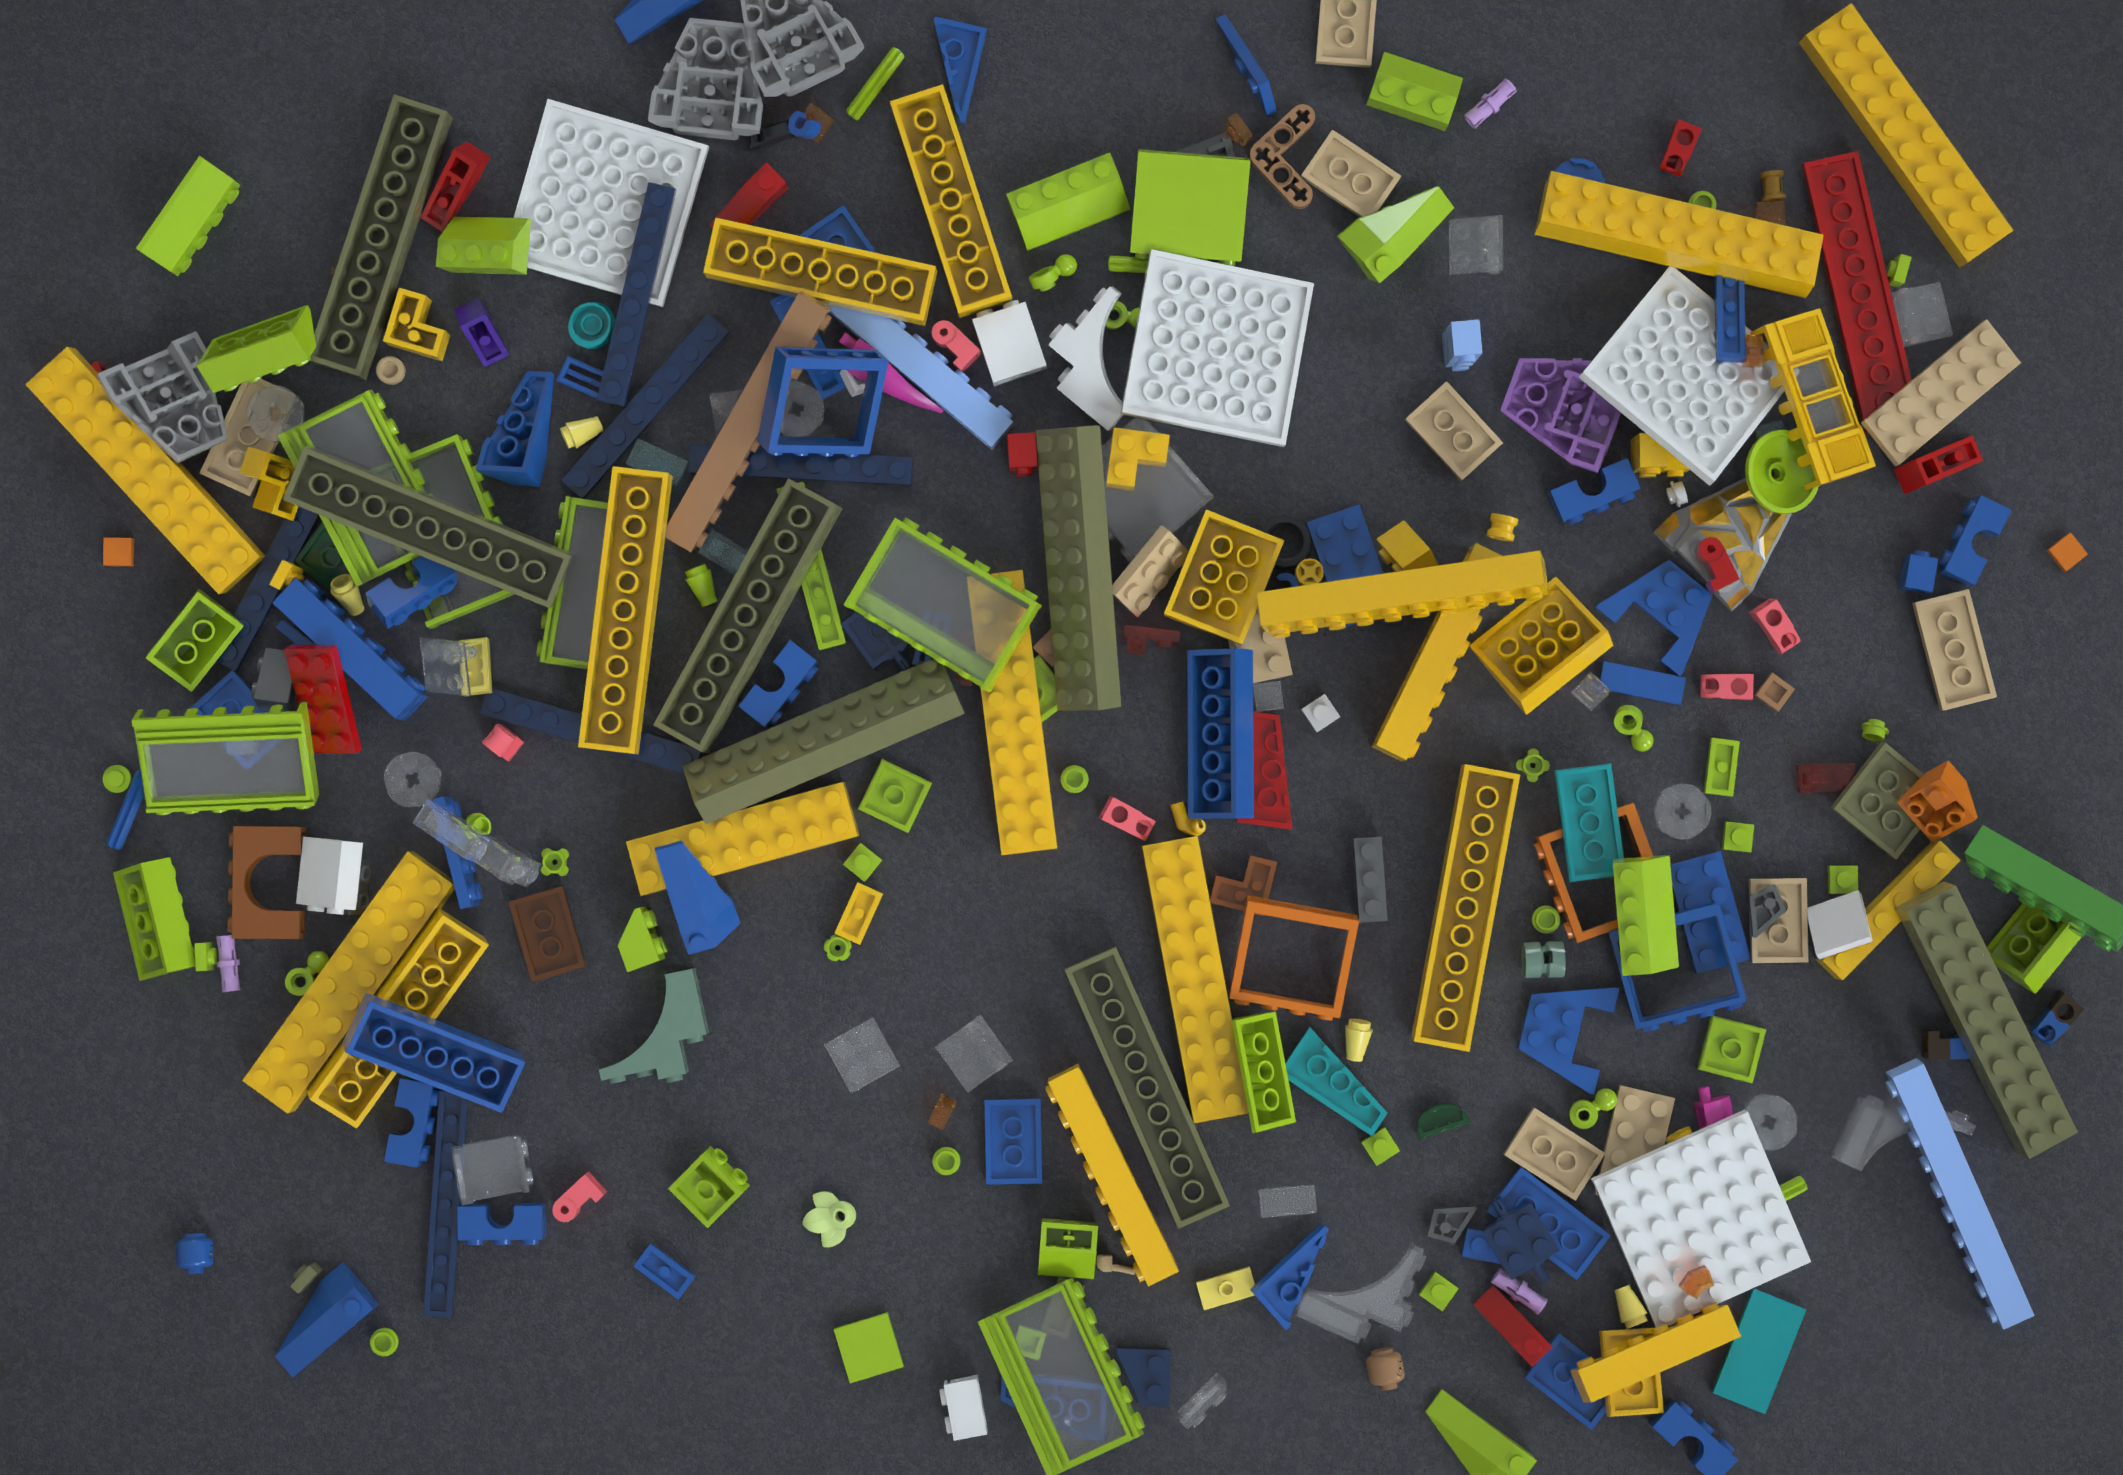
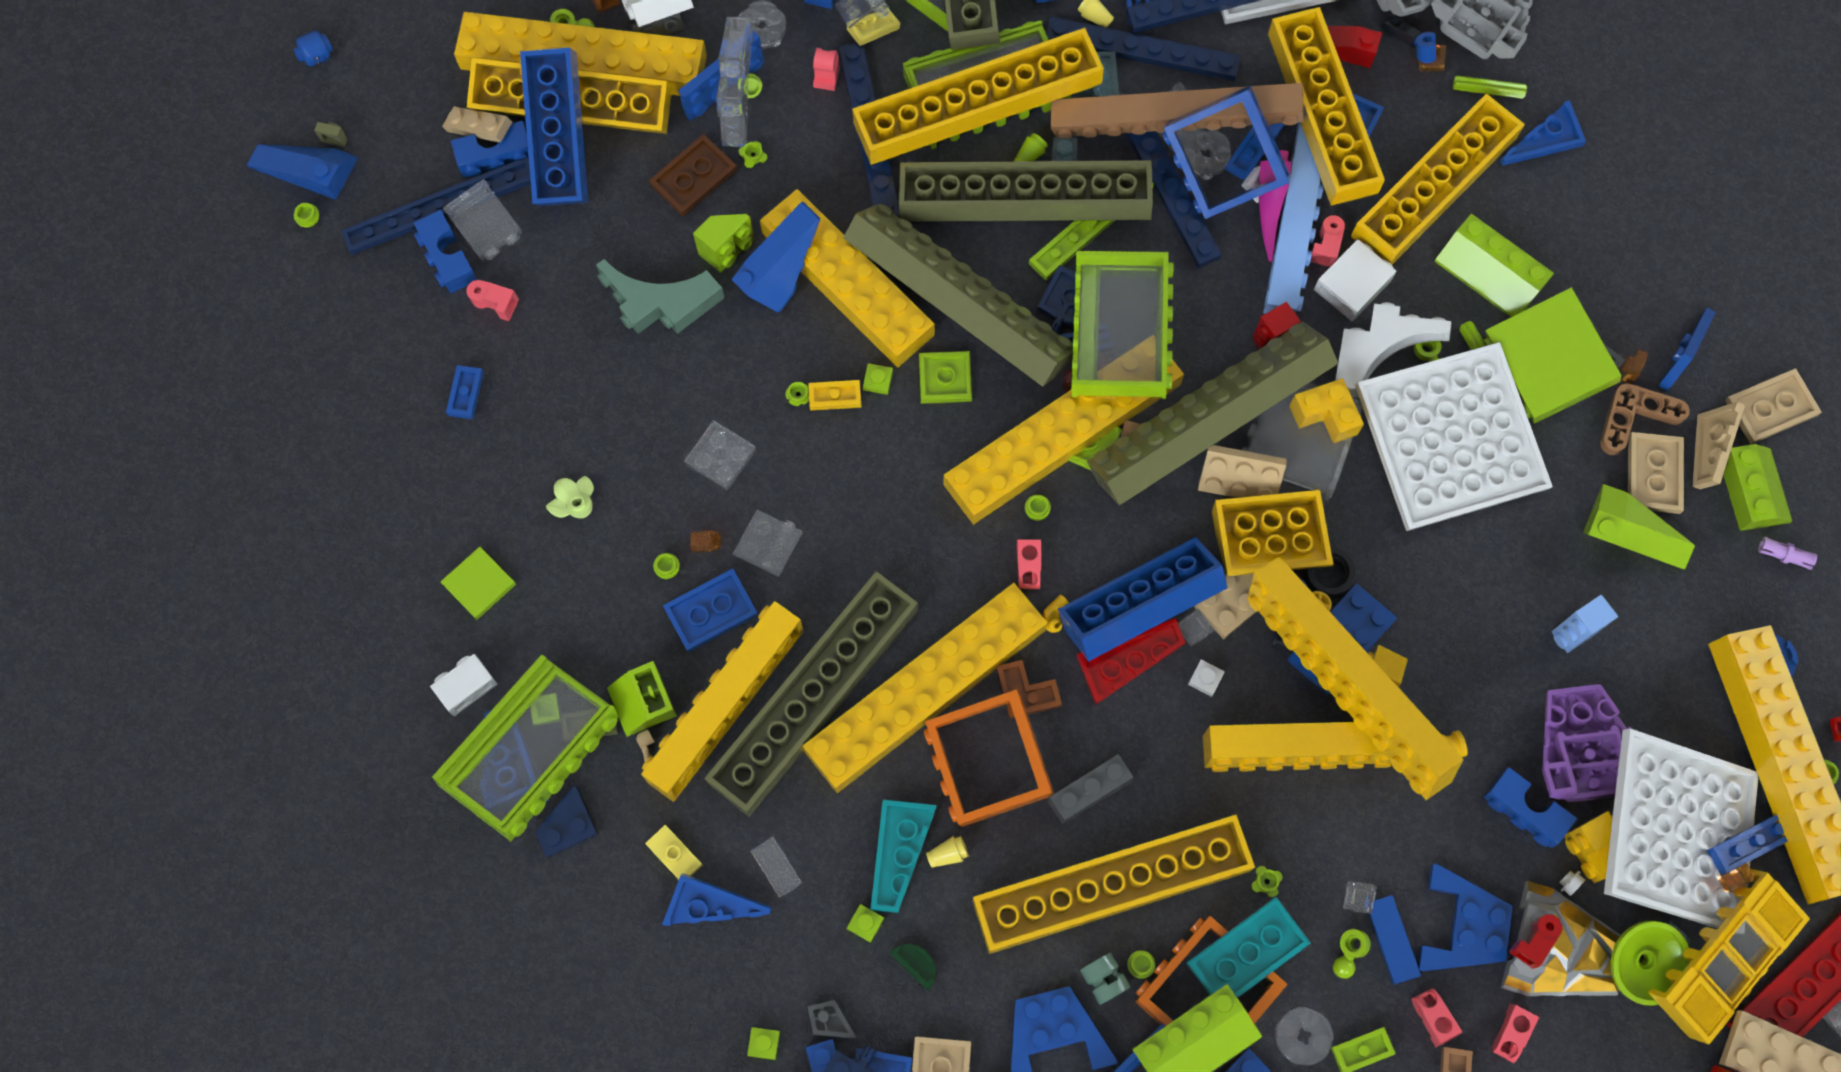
camera: 60 degrees right, 15 degrees down
(377, 1125) = (482, 124): none -> tan plate
(709, 1186) = (552, 390): lime plate -> none
(767, 706) = (1003, 252): blue arch -> none
(1045, 278) = (1441, 291): lime plate -> none
(1138, 637) = (1185, 497): clear red hinge -> none
(1210, 1394) = (554, 877): clear plate -> none
(1263, 1071) = (876, 780): lime slope -> none
(1354, 106) = (1713, 444): none -> tan wing
(1382, 1301) = (728, 996): clear arch -> none
(1385, 1368) = (670, 1029): medium nougat head -> none
(1453, 431) = (1505, 664): tan plate -> none
(1476, 245) = (1667, 602): clear hinge -> none
(1542, 646) = (1373, 834): yellow slope -> none

